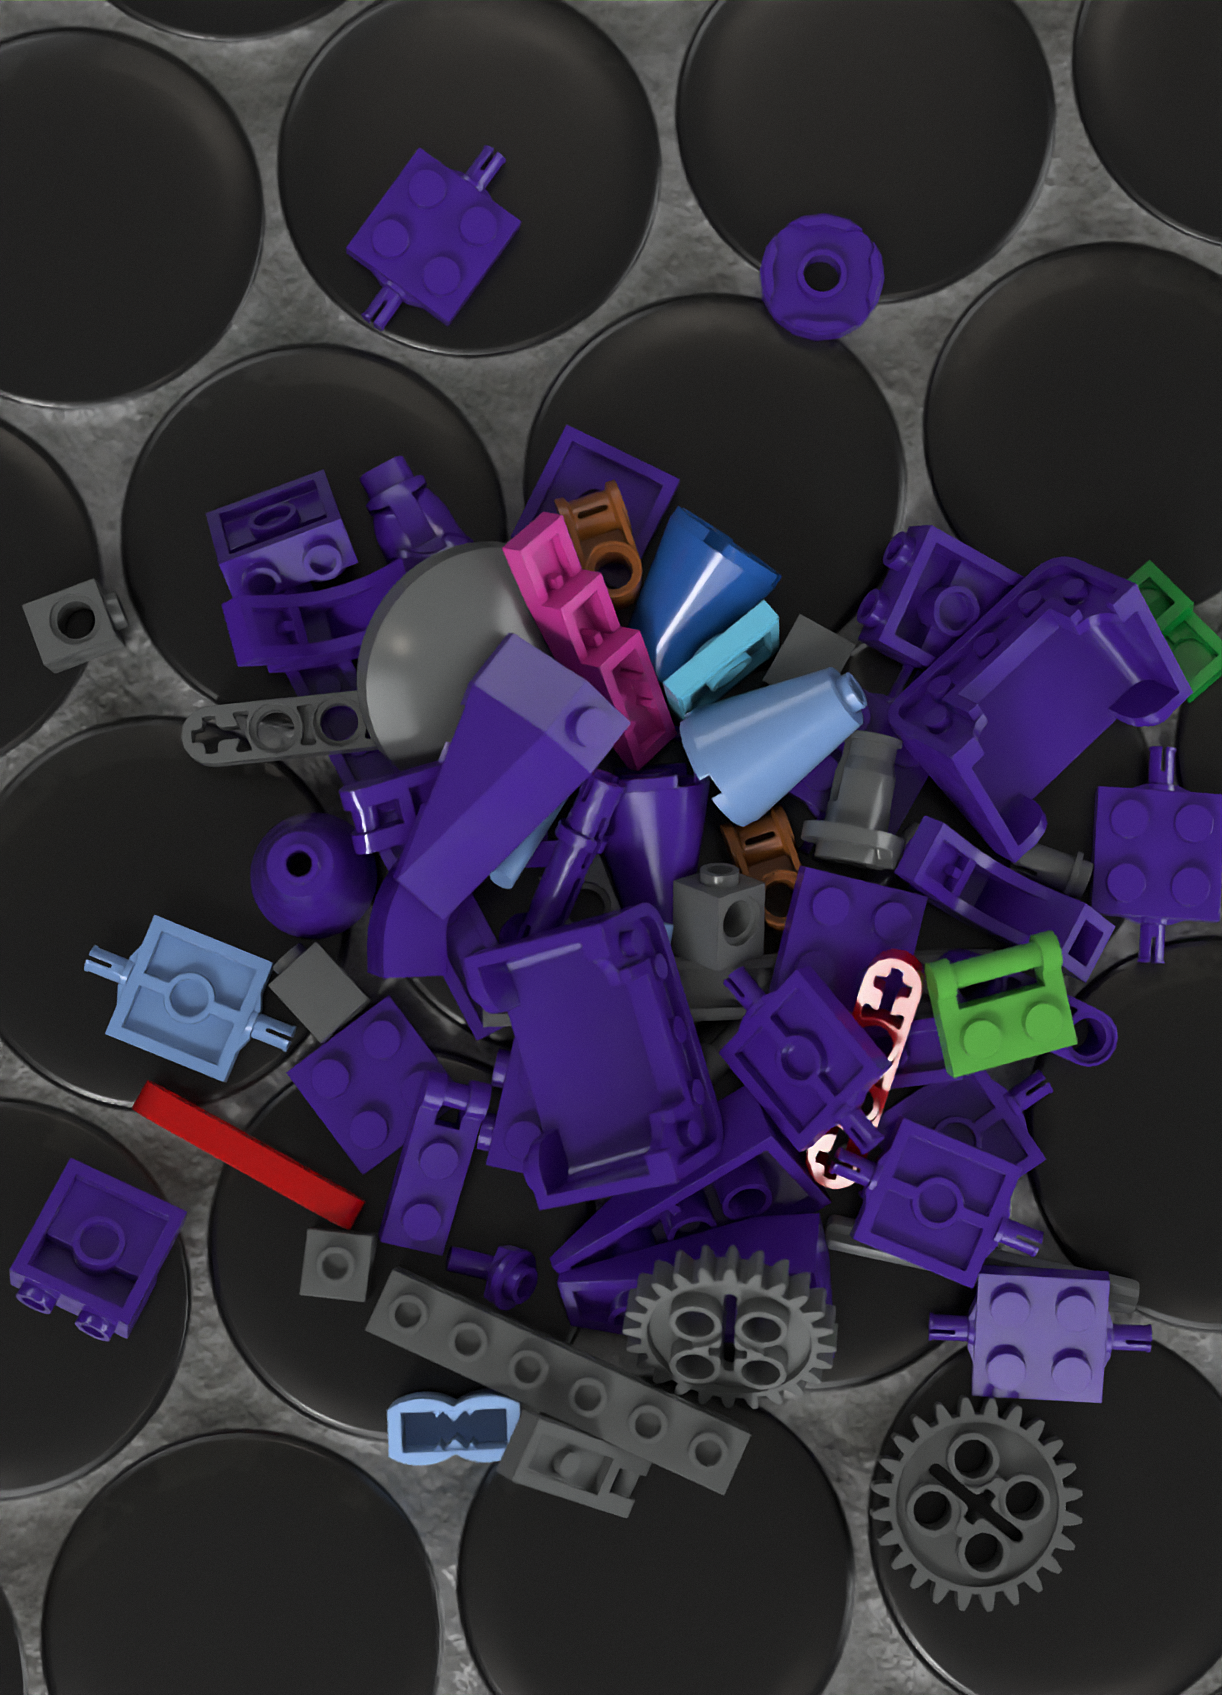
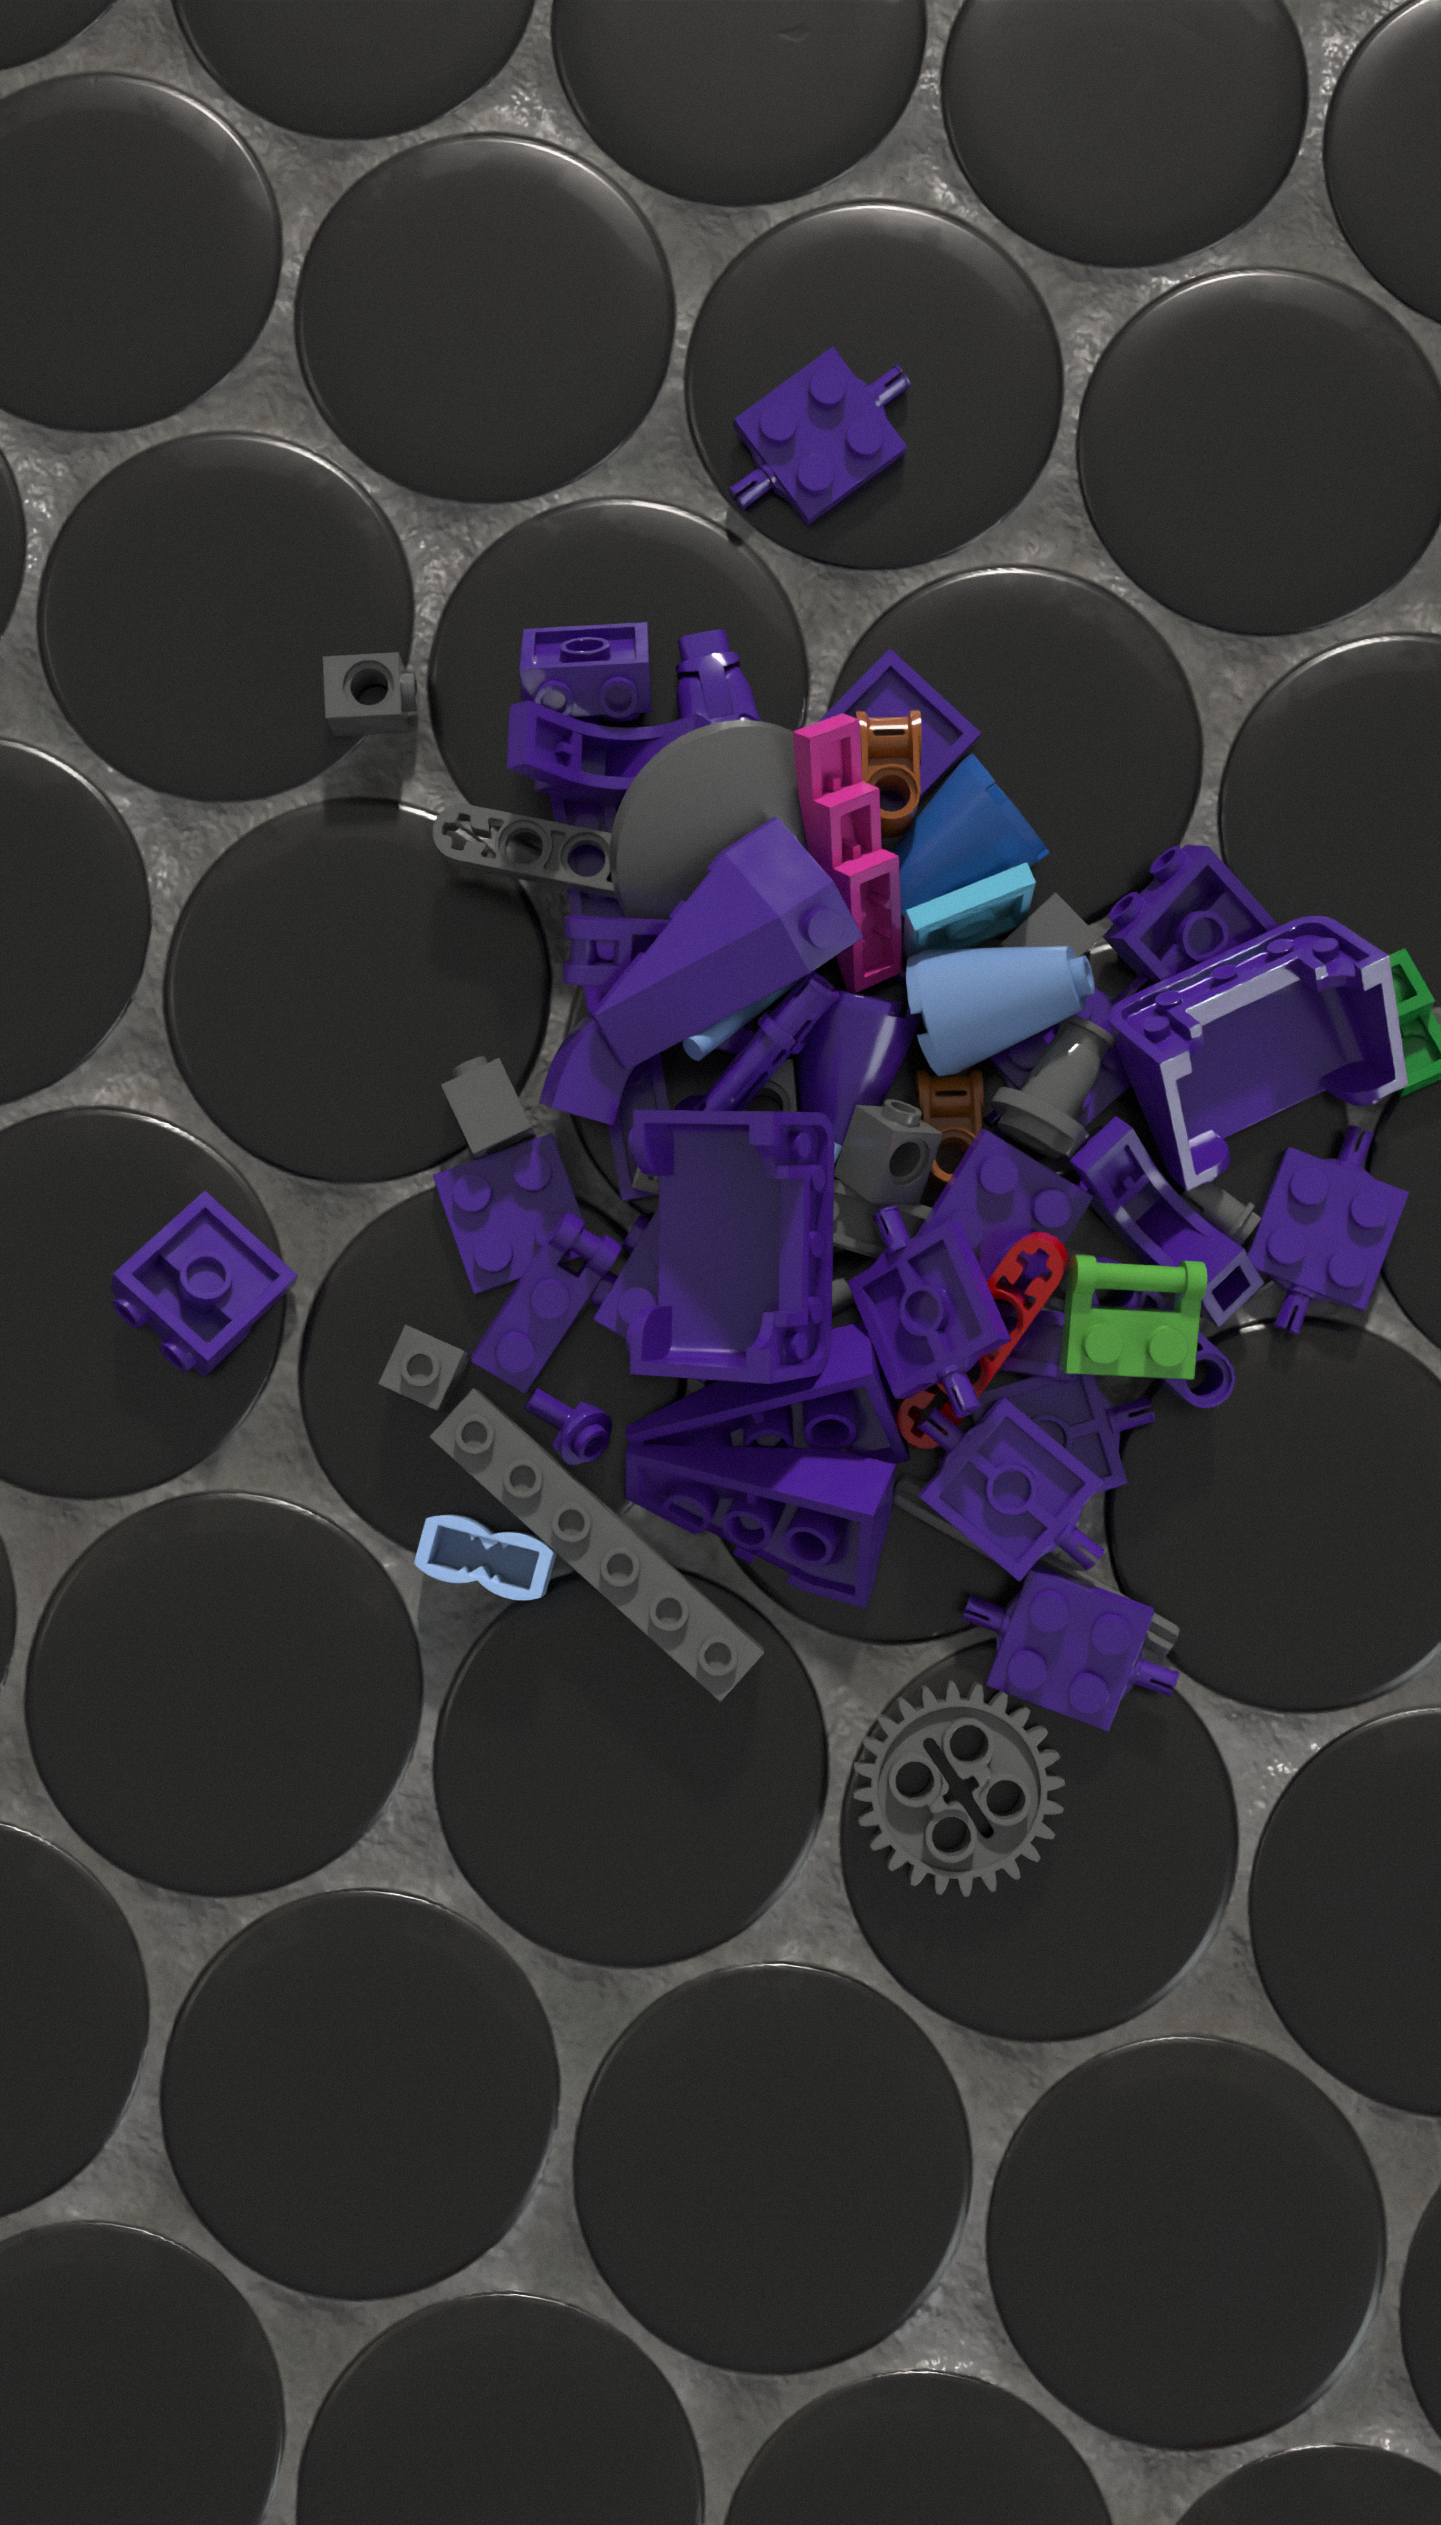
camera: 20 degrees right, 0 degrees up
(190, 998) = (364, 1077): medium blue plate -> none
(248, 1154) = (372, 1241): red beam -> none
(333, 891) = (515, 1000): dark purple cone -> none
(572, 1464) = (585, 1626): dark grey plate -> none
(780, 1328) = (822, 1564): dark grey gear -> none
(813, 312) = (1166, 621): dark purple tile -> none

